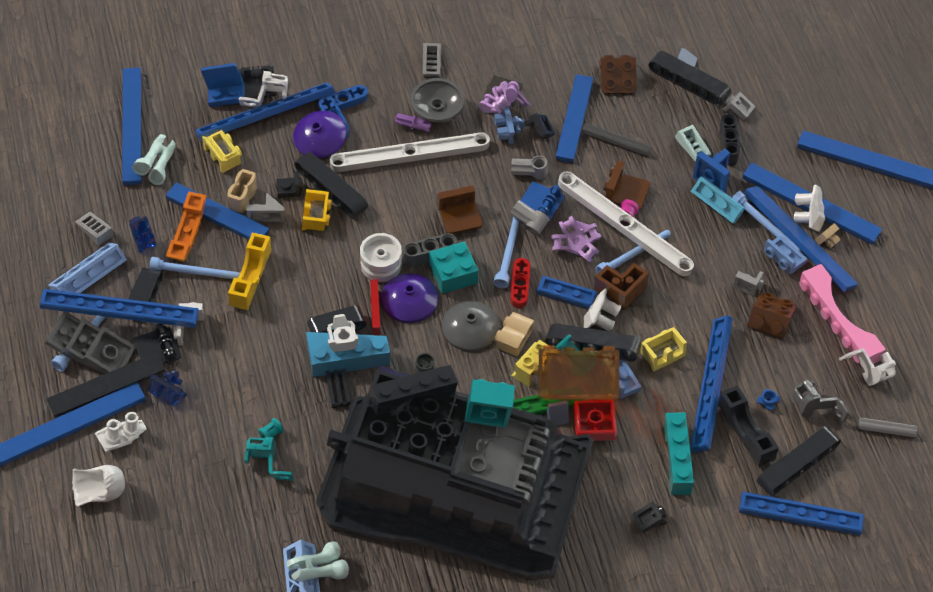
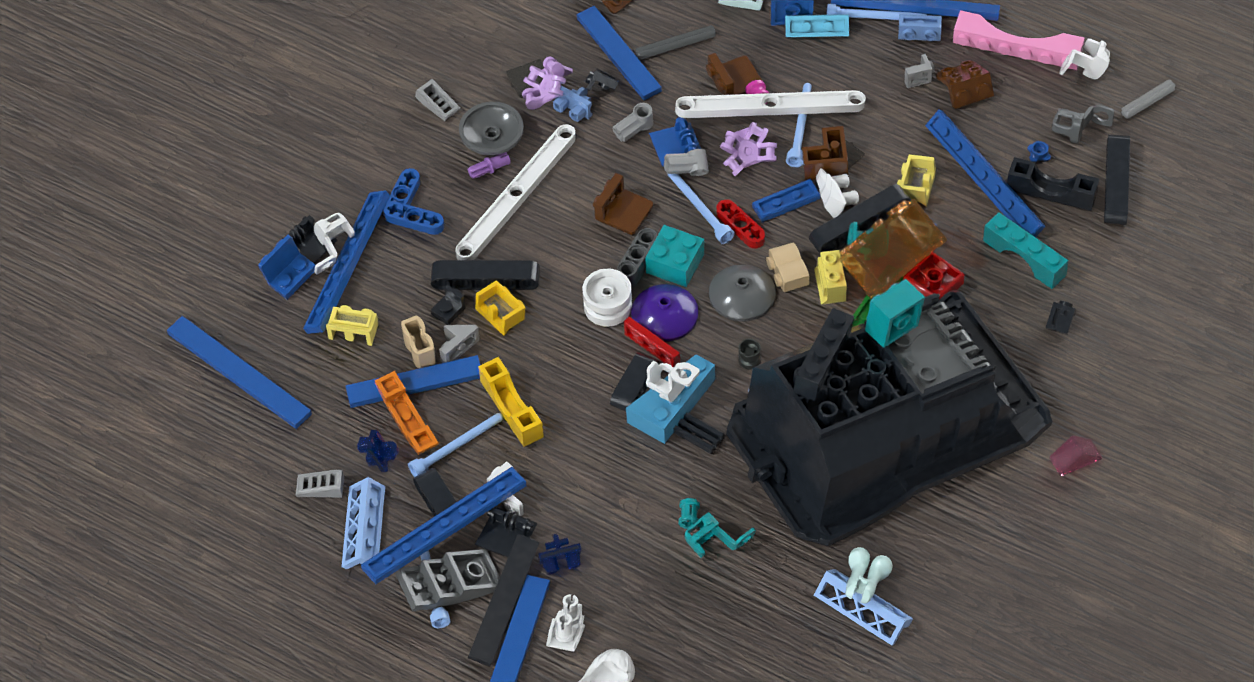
camera: 40 degrees left, 0 degrees up
(143, 165) = (308, 383): light aqua piece -> none
(323, 140) = (419, 253): dark purple dish -> none
(801, 513) = (1161, 218): blue tile -> none

